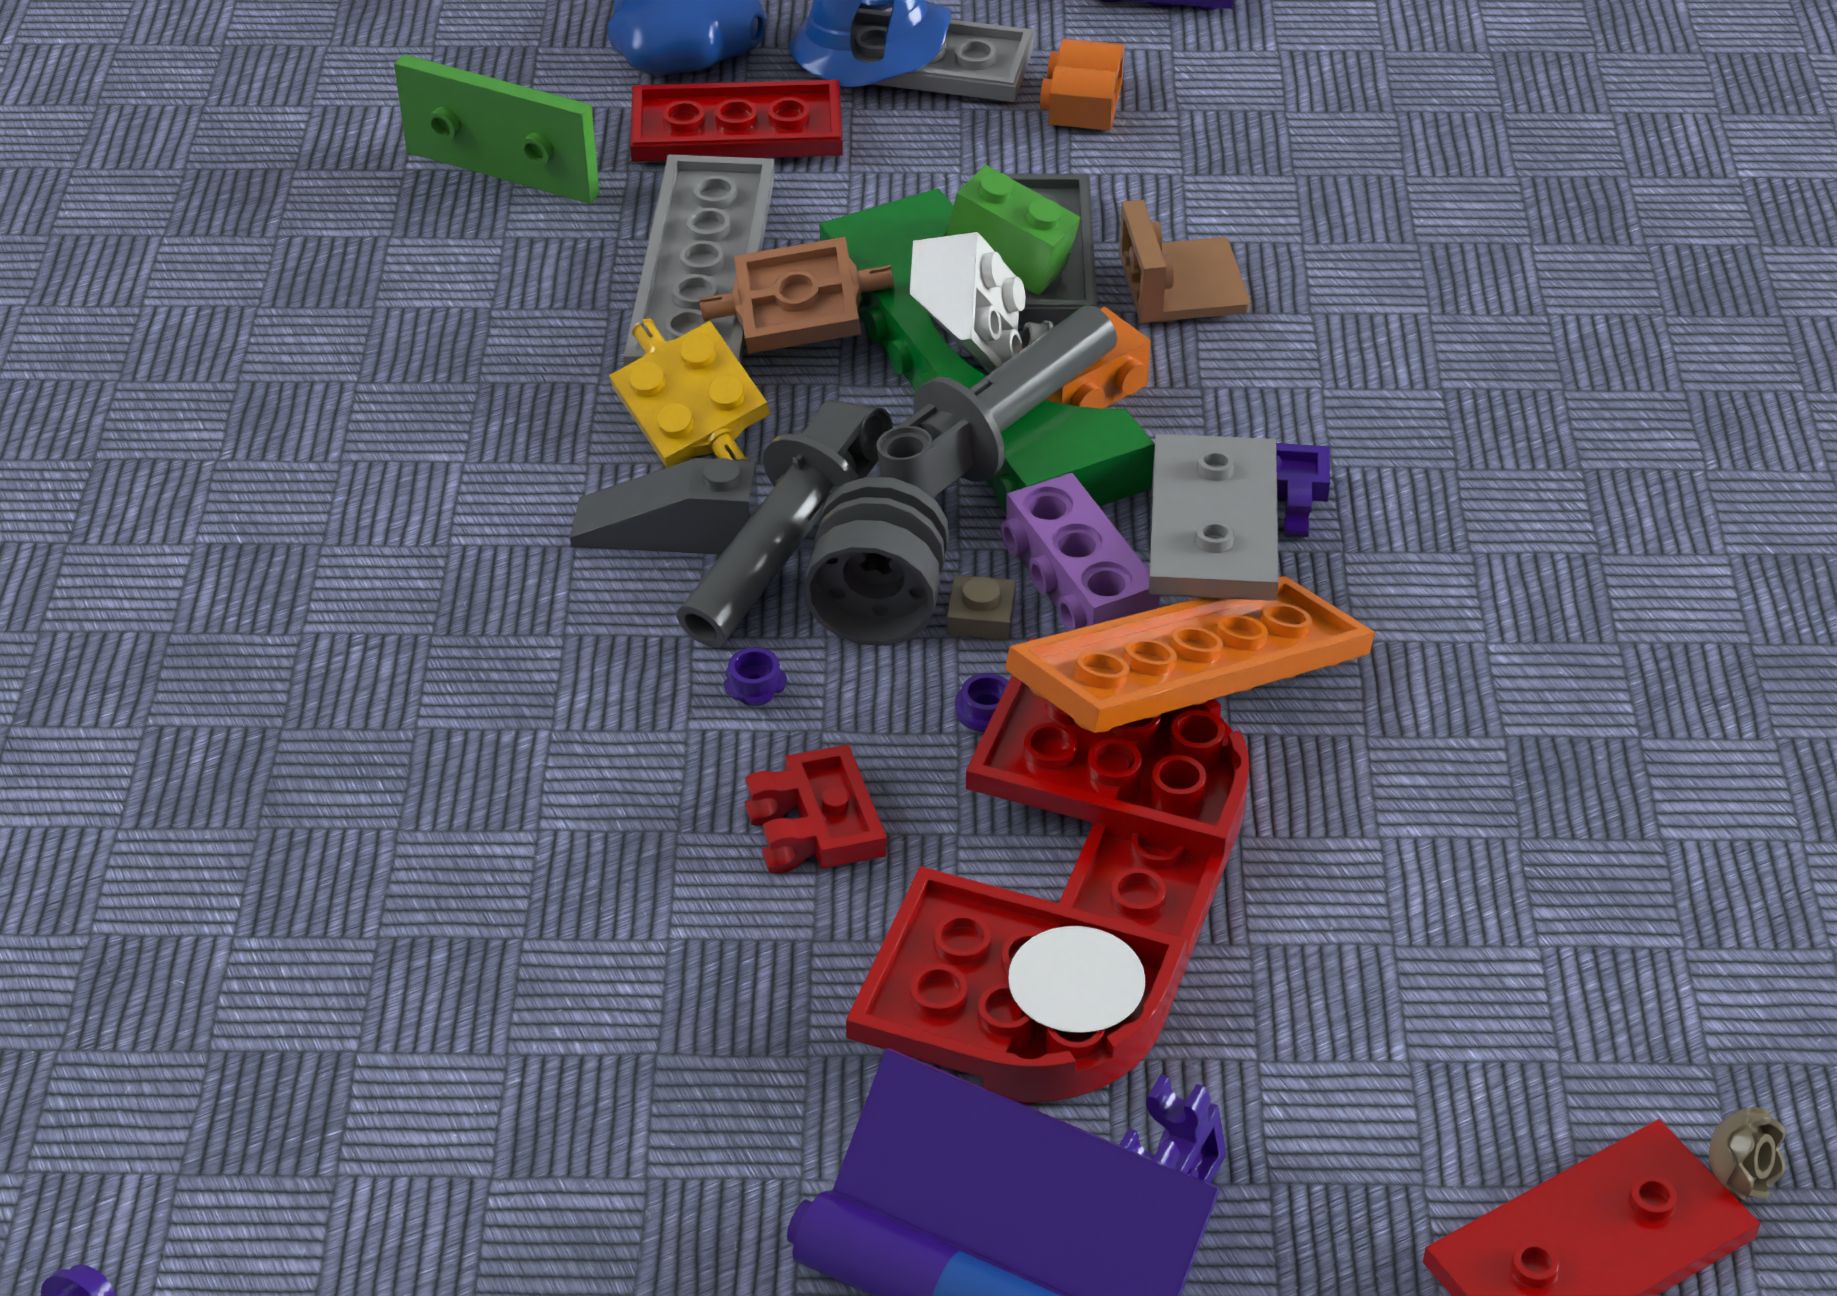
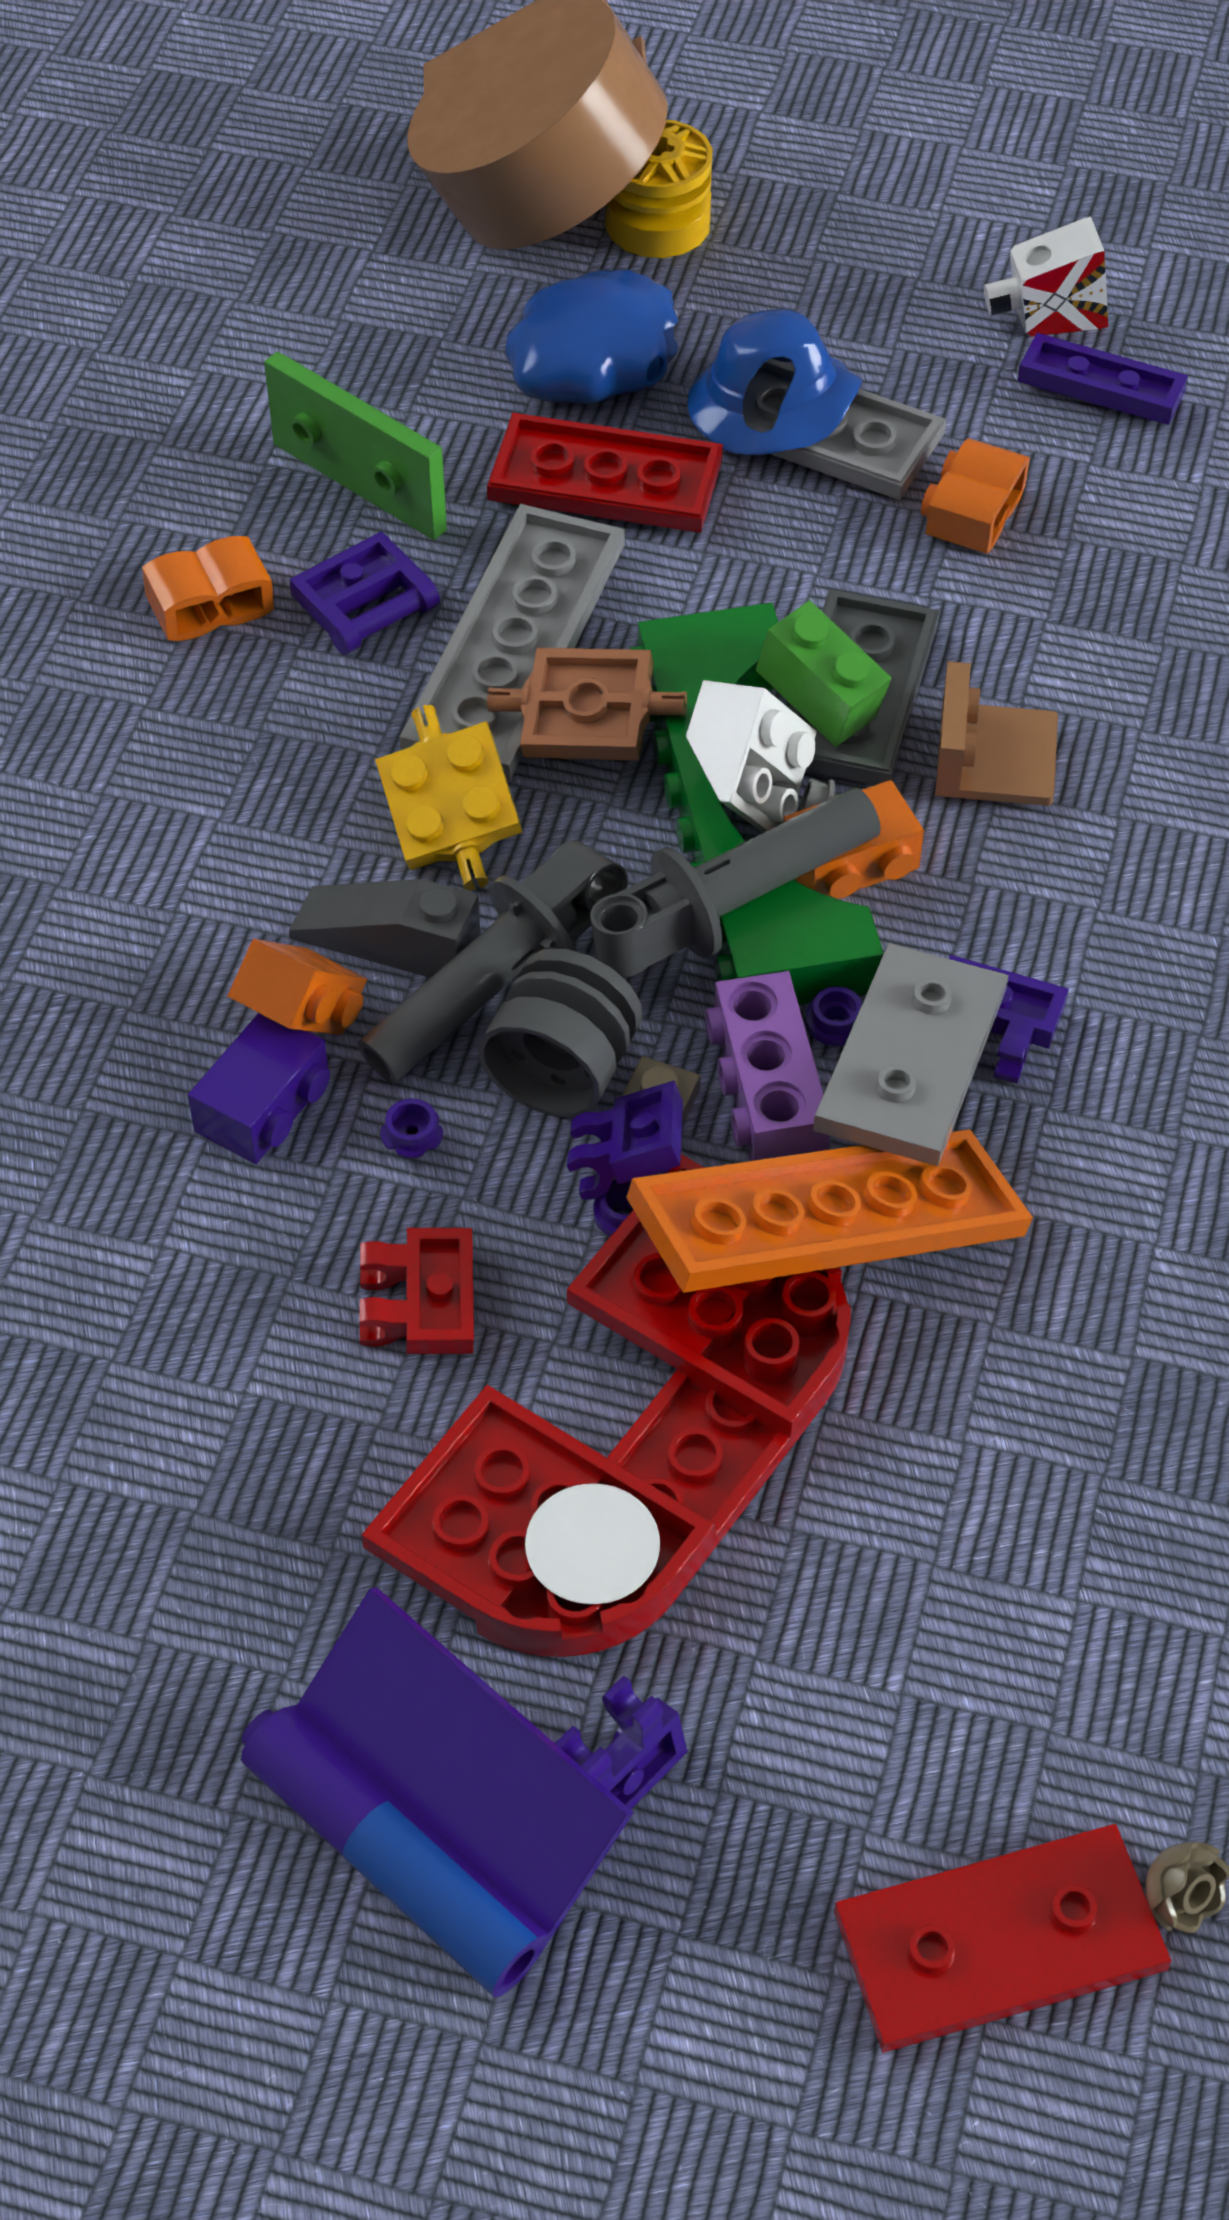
camera: 15 degrees right, 10 degrees up
(389, 270) = (208, 588): none -> orange brick
(532, 239) = (356, 579): none -> dark purple plate
(593, 668) = (259, 1088): none -> dark purple brick
(608, 569) = (298, 988): none -> orange brick
(973, 636) = (635, 1139): none -> dark purple plate
(1126, 508) = (832, 1004): none -> dark purple plate

